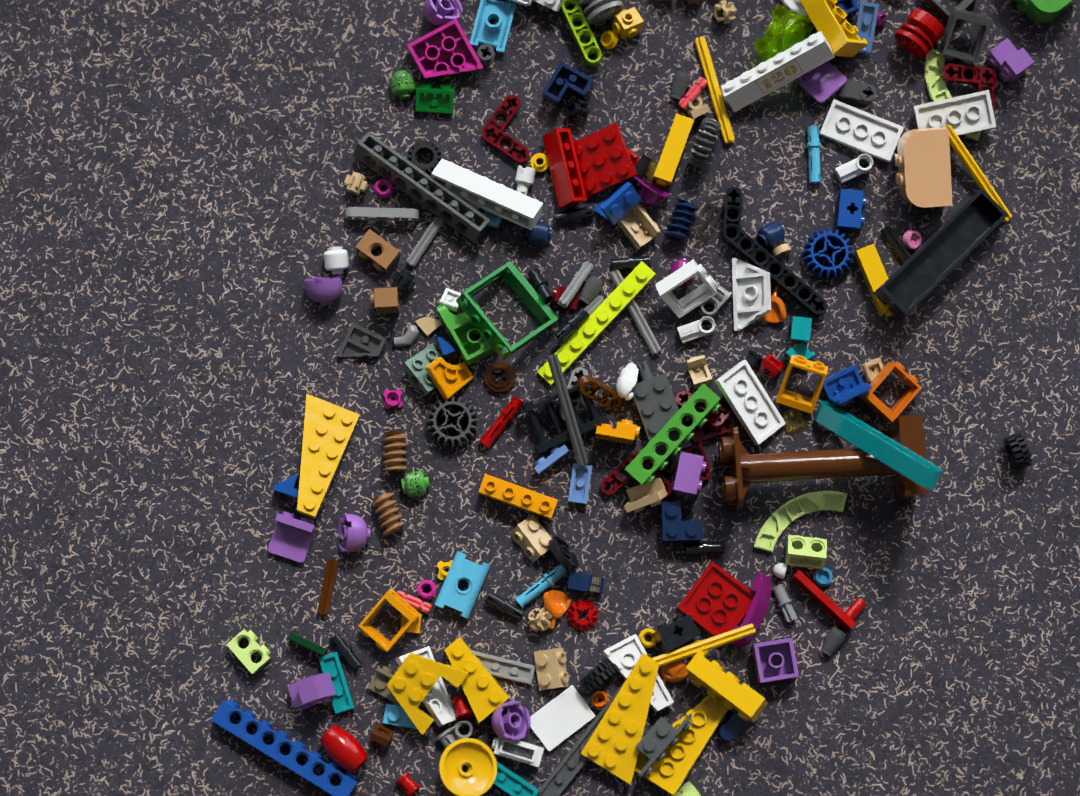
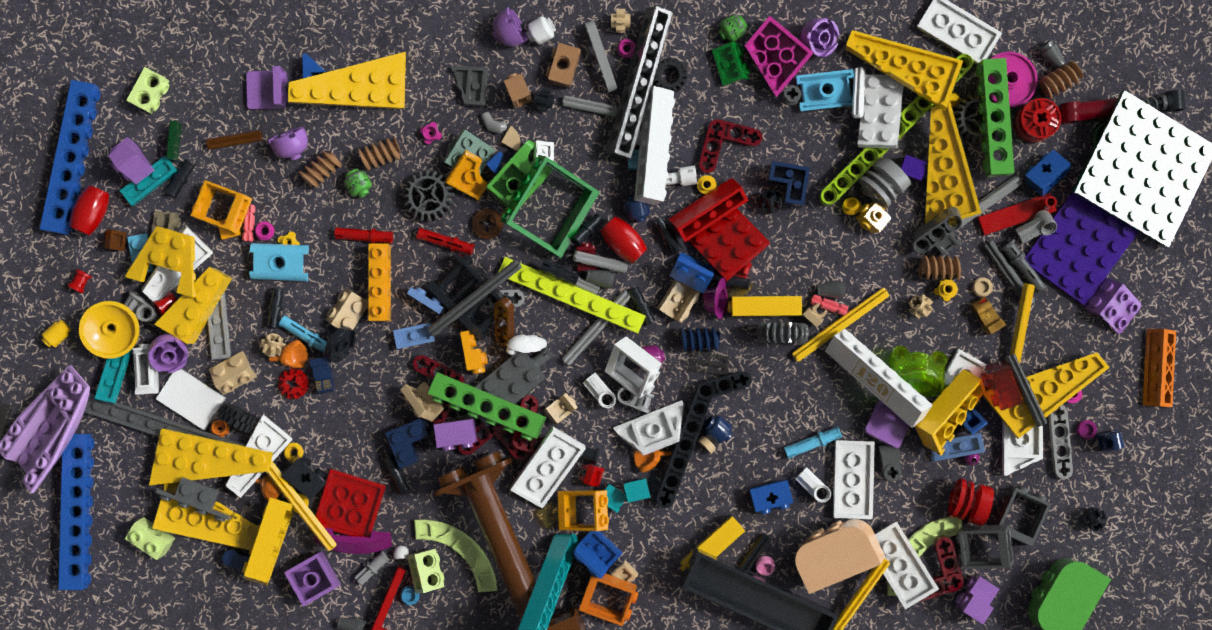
camera: 75 degrees right, 5 degrees up
(466, 496) = (364, 235): none -> red pin
(563, 255) = (623, 240): none -> red piece
(835, 251) = (730, 504): blue gear -> none

